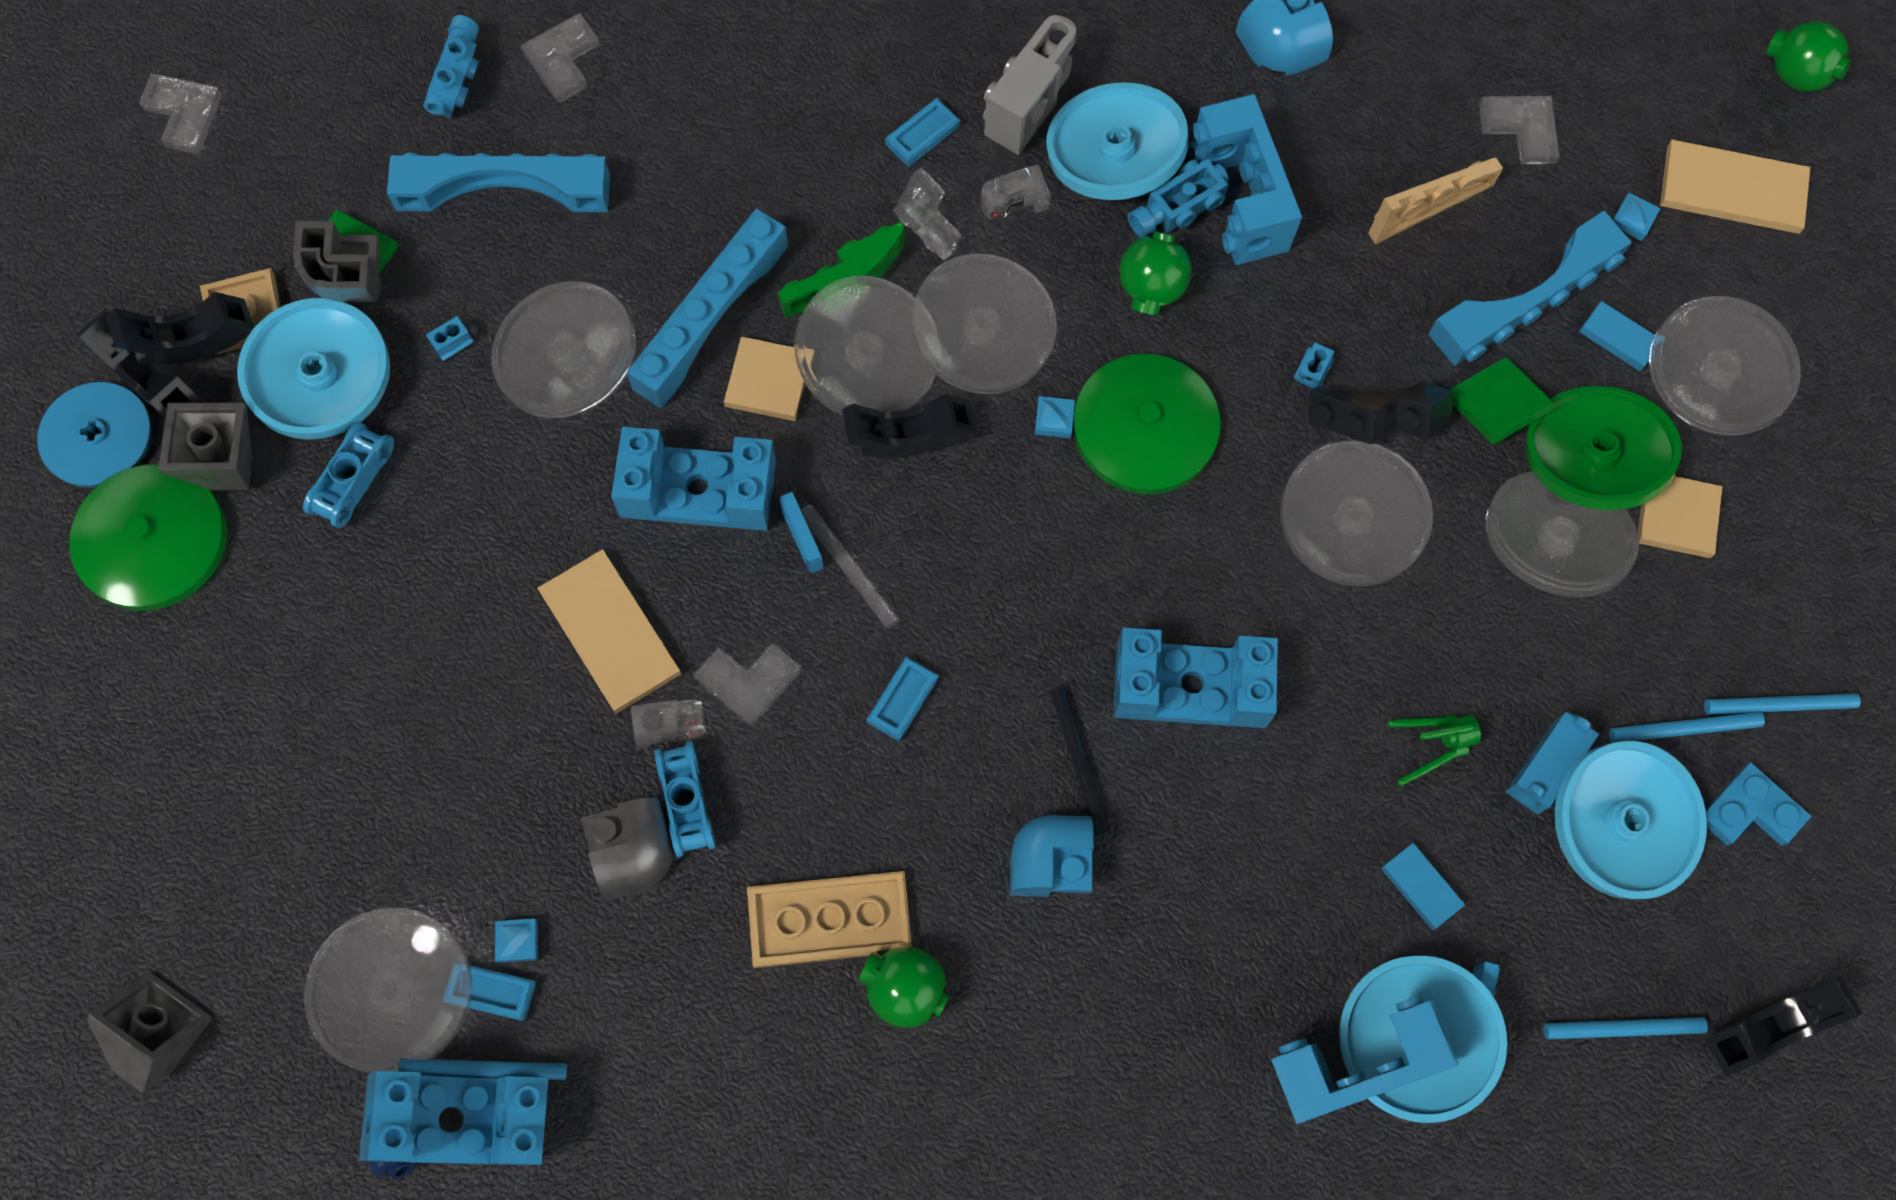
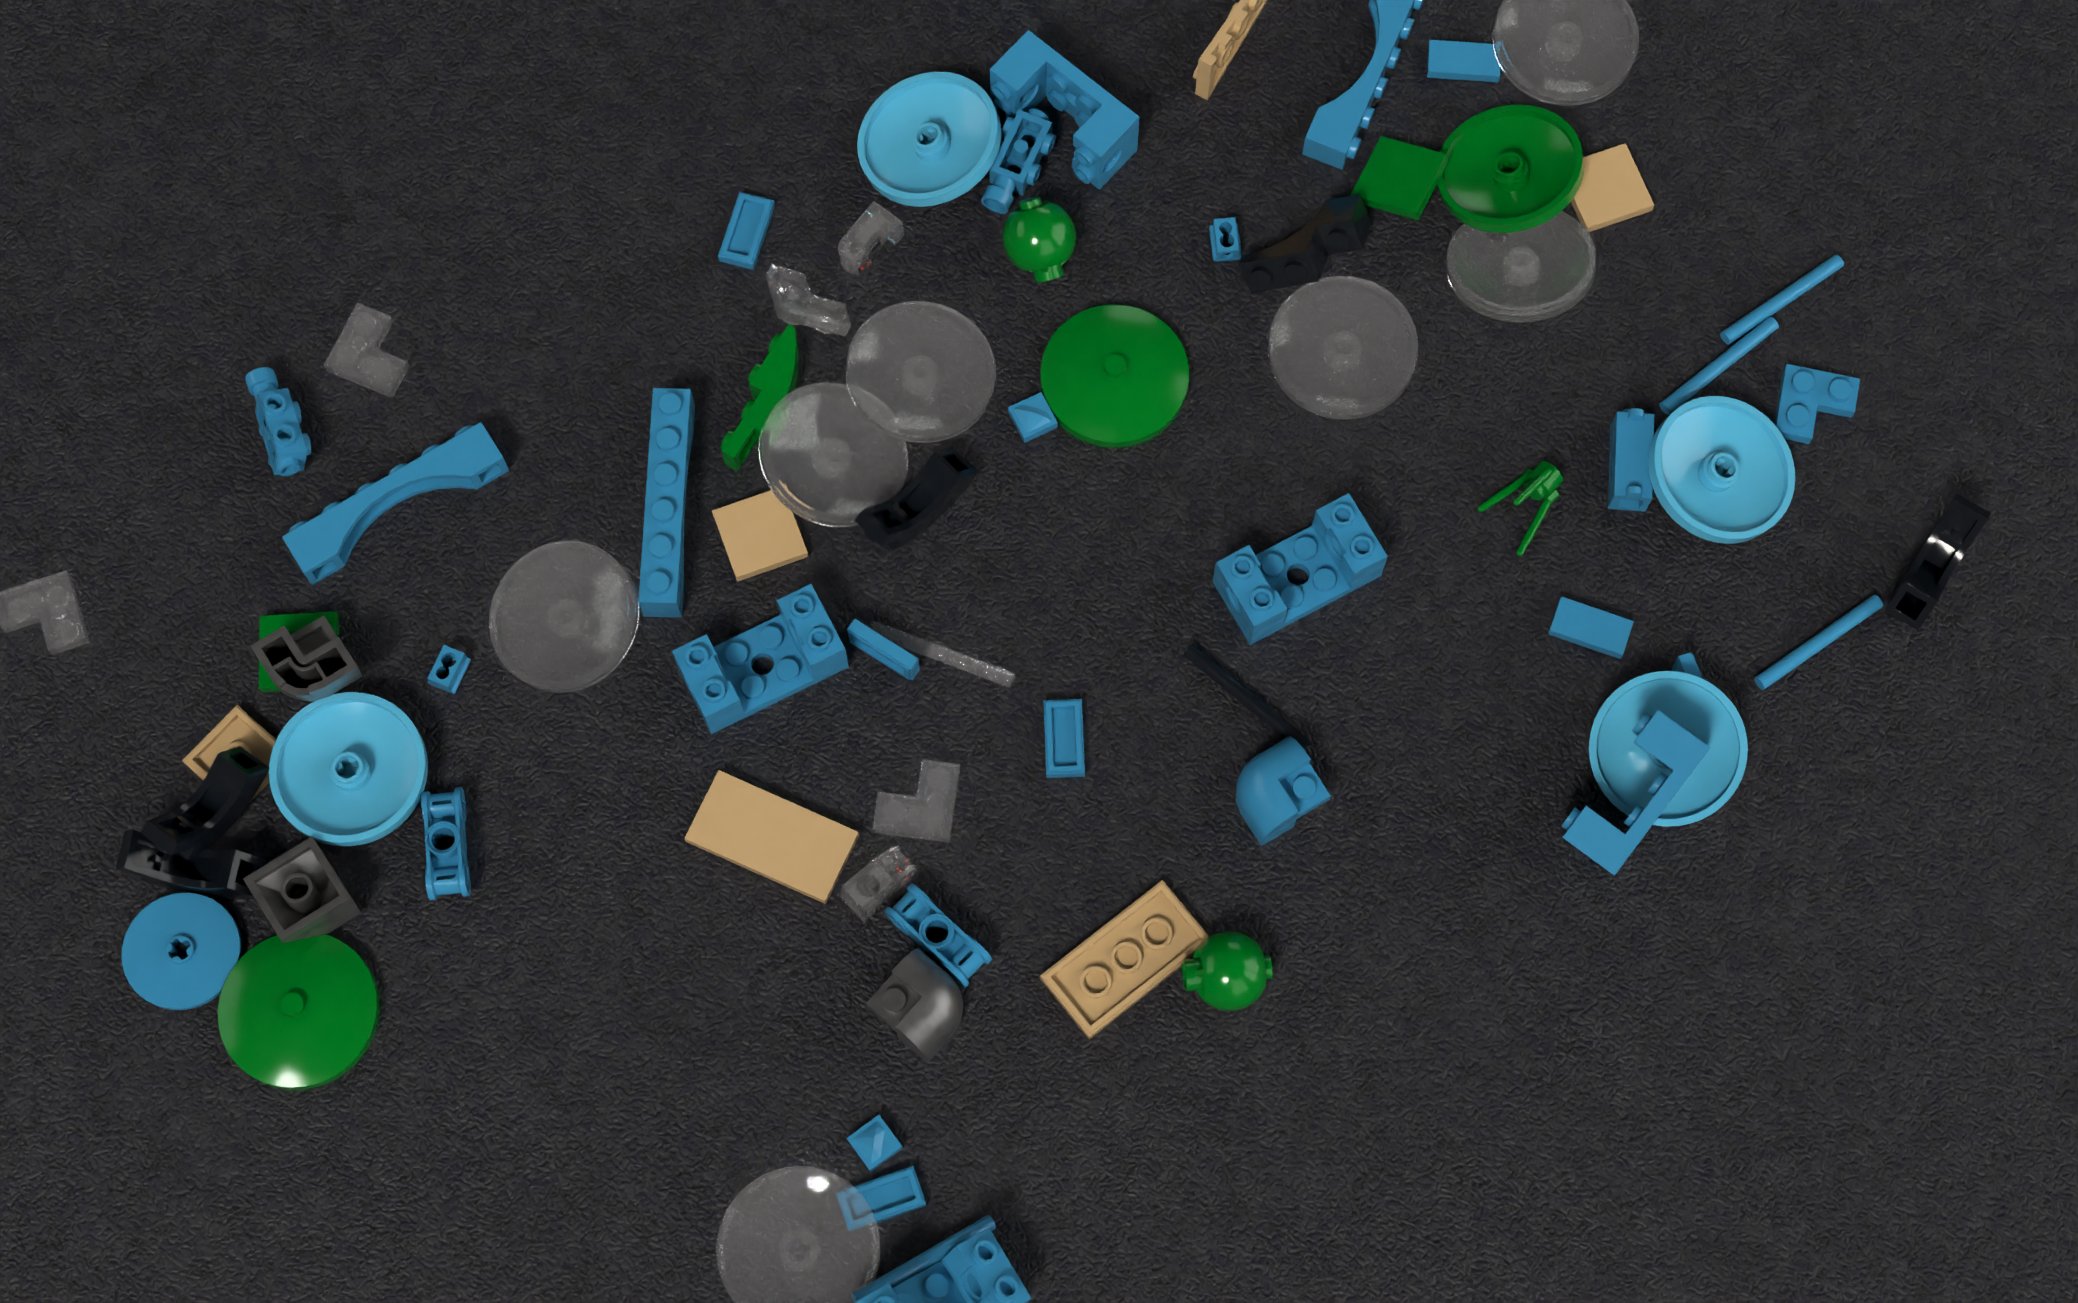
camera: 30 degrees left, 0 degrees up
(1029, 86) = (820, 136): light grey brick -> none

